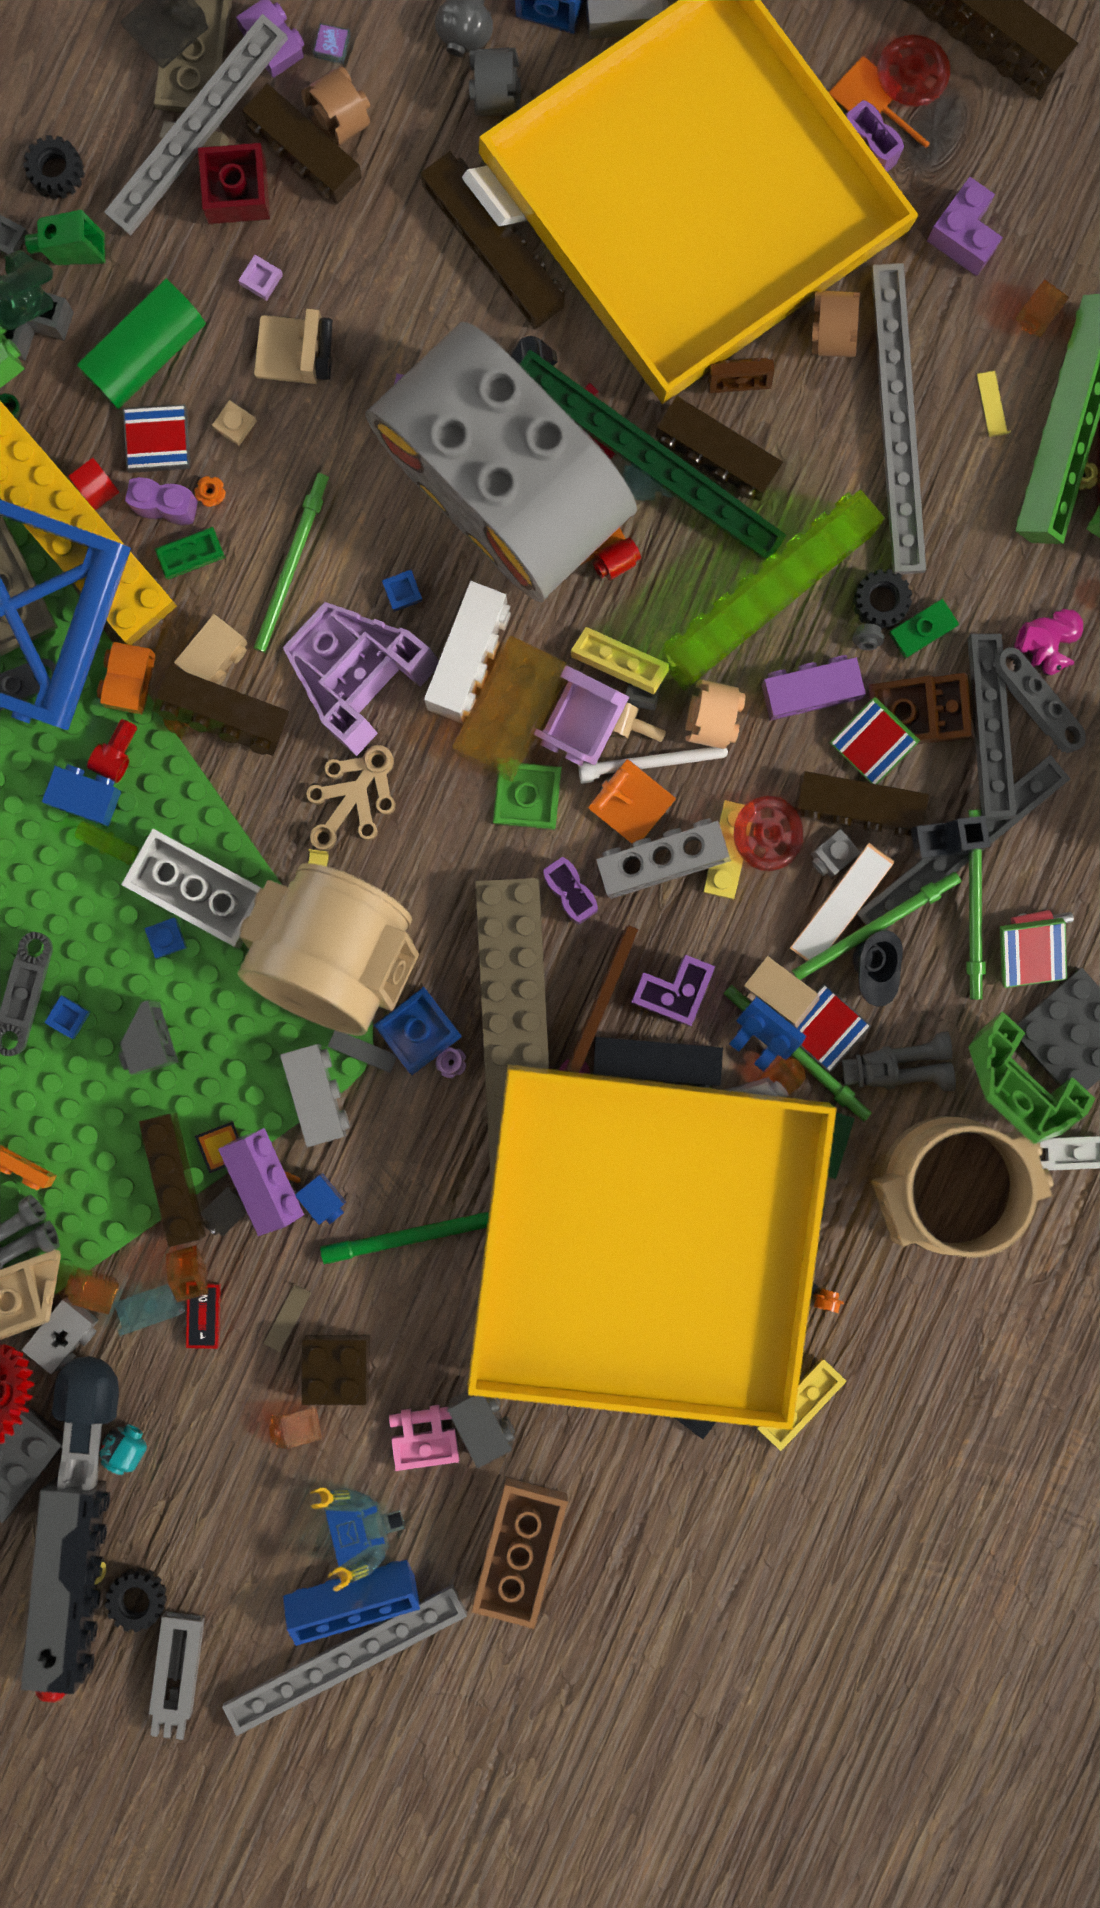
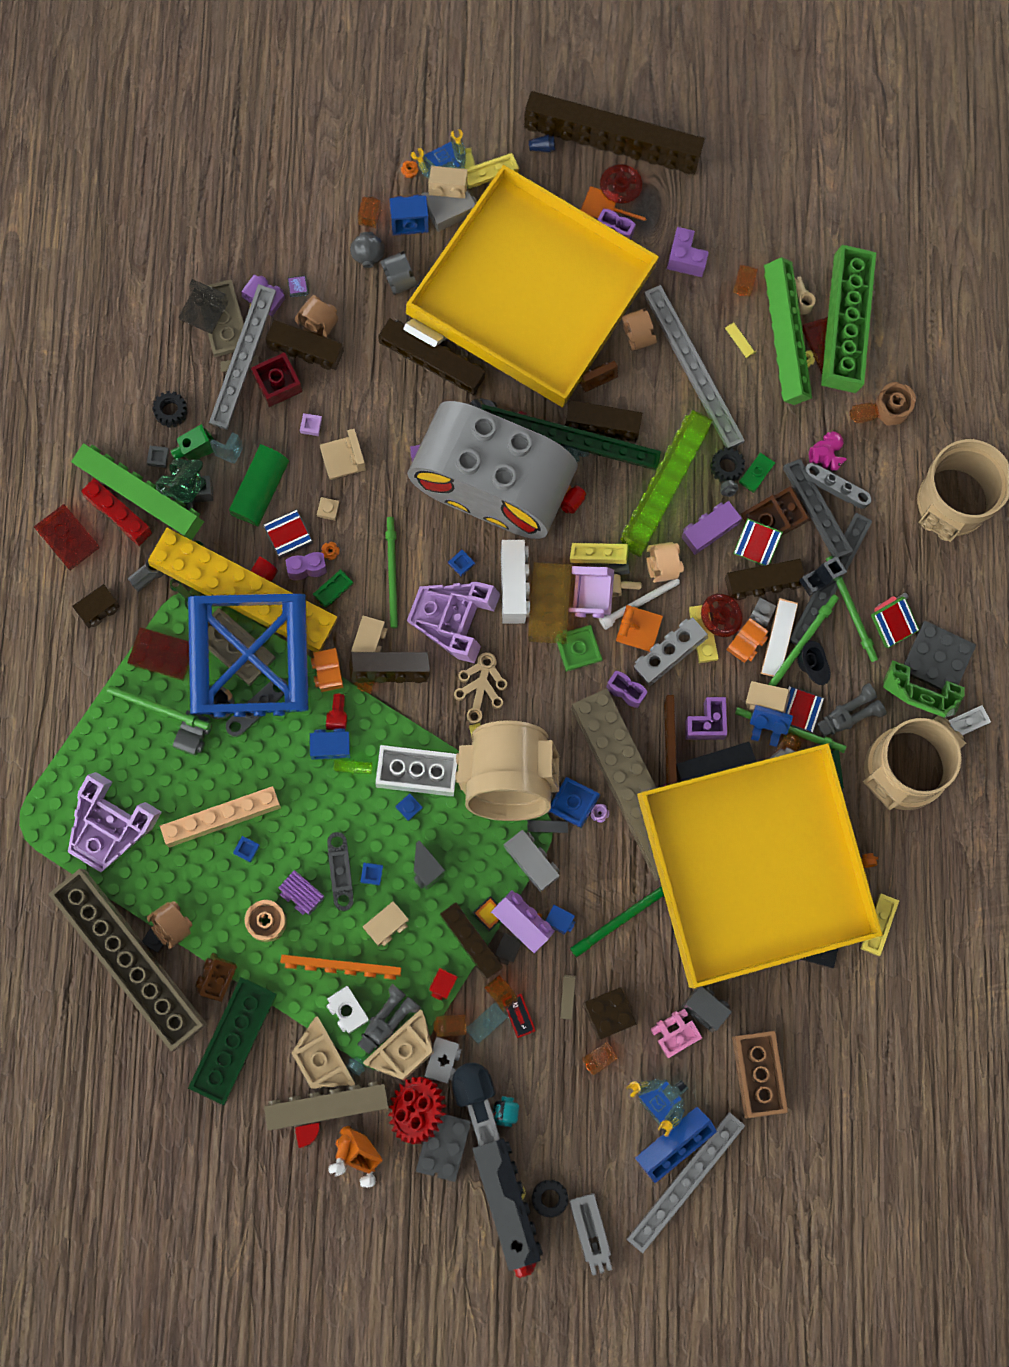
camera: 25 degrees left, 10 degrees down
(57, 1101) = (386, 924): none -> tan brick
(104, 1226) = (442, 984): none -> red brick
(118, 268) = (230, 451): none -> clear light blue panel
(324, 358) = (366, 456): black bar -> none
(791, 889) = (747, 640): none -> orange brick

